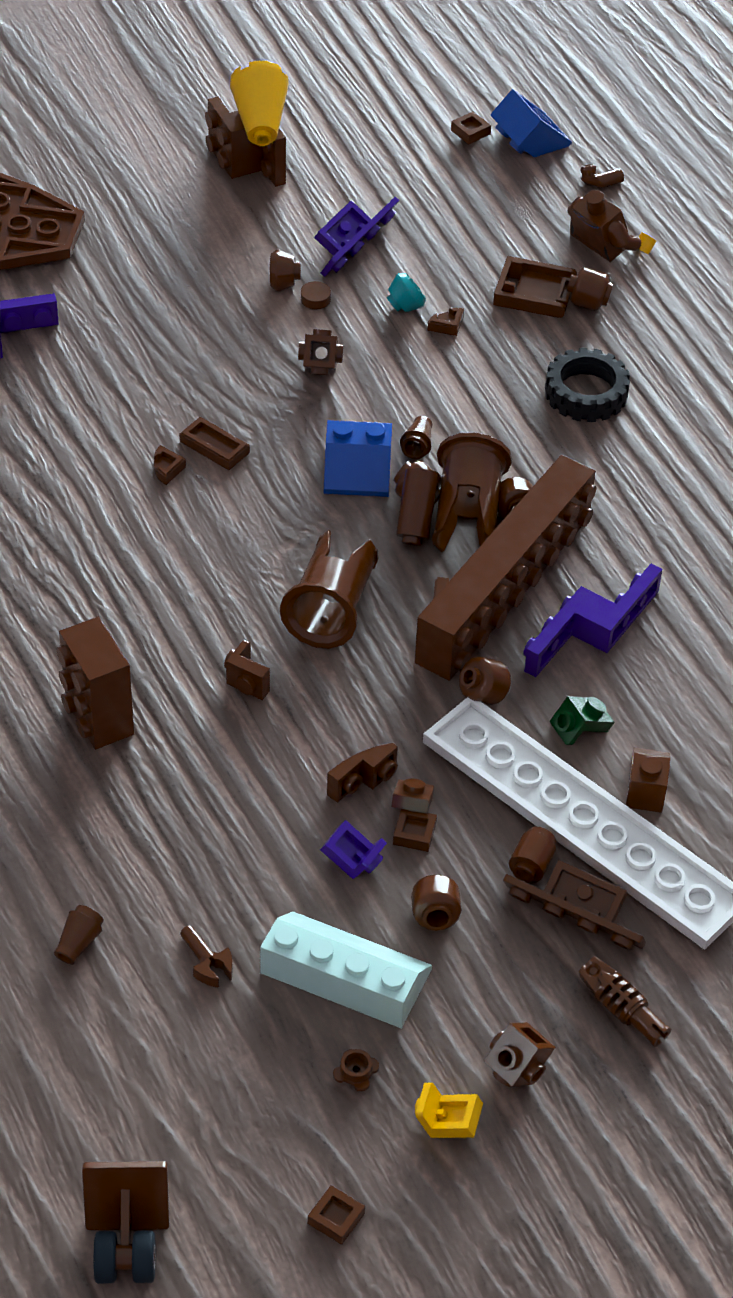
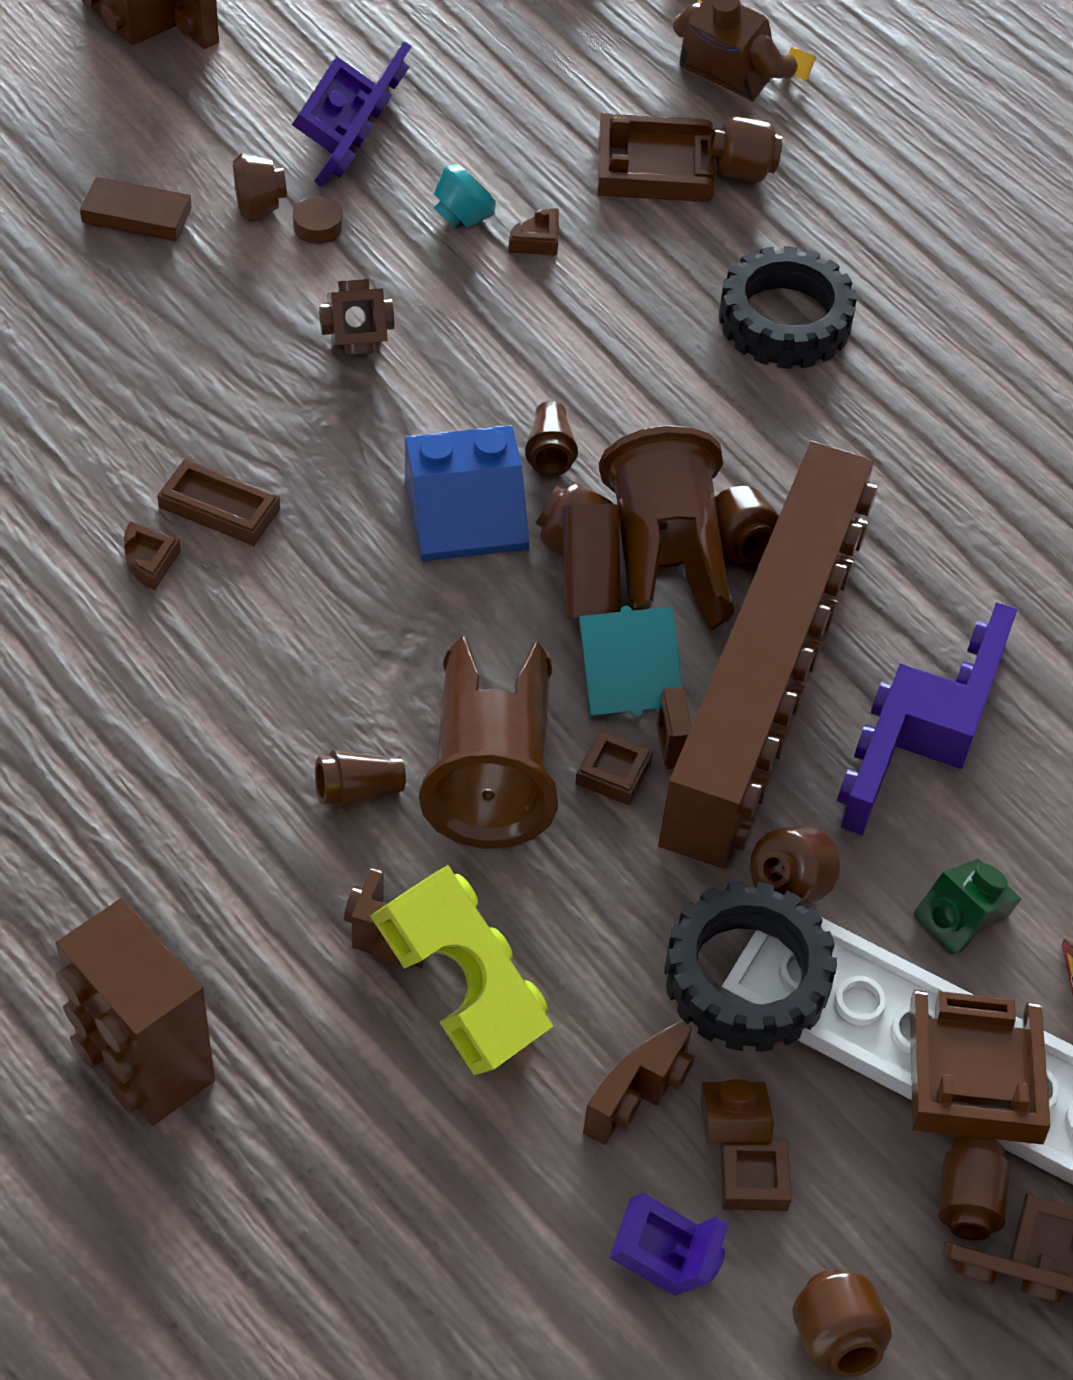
camera: 15 degrees left, 5 degrees up
(209, 274) = (136, 208): none -> reddish brown tile
(251, 597) = (356, 777): none -> reddish brown cone
(272, 667) = (499, 1007): none -> neon yellow arch
(399, 617) = (614, 767): none -> reddish brown tile
(424, 559) = (629, 659): none -> teal piece
(440, 751) = (770, 913): none -> black tyre
(551, 795) = (978, 1059): none -> reddish brown container

